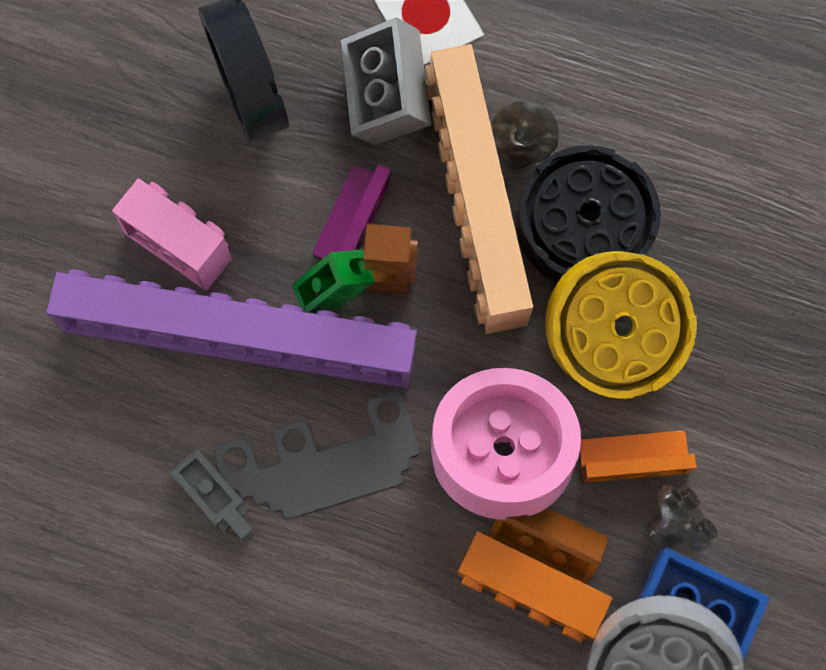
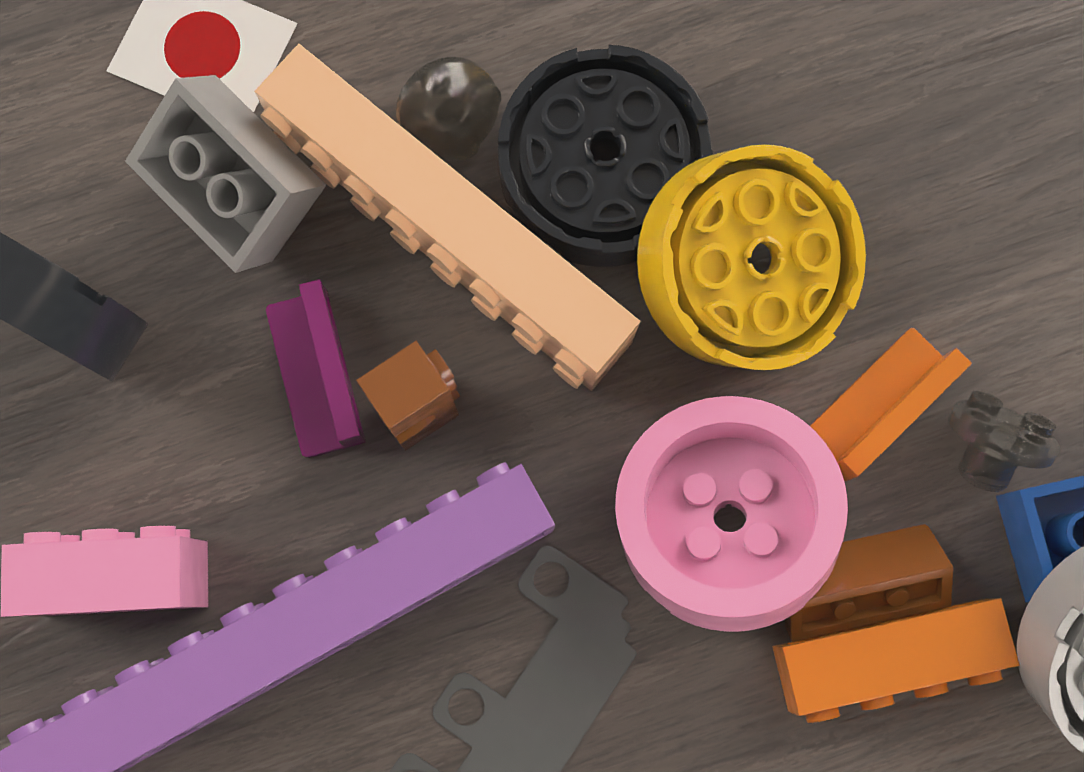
camera: 40 degrees left, 5 degrees up
(339, 276) = (363, 464): green brick -> none

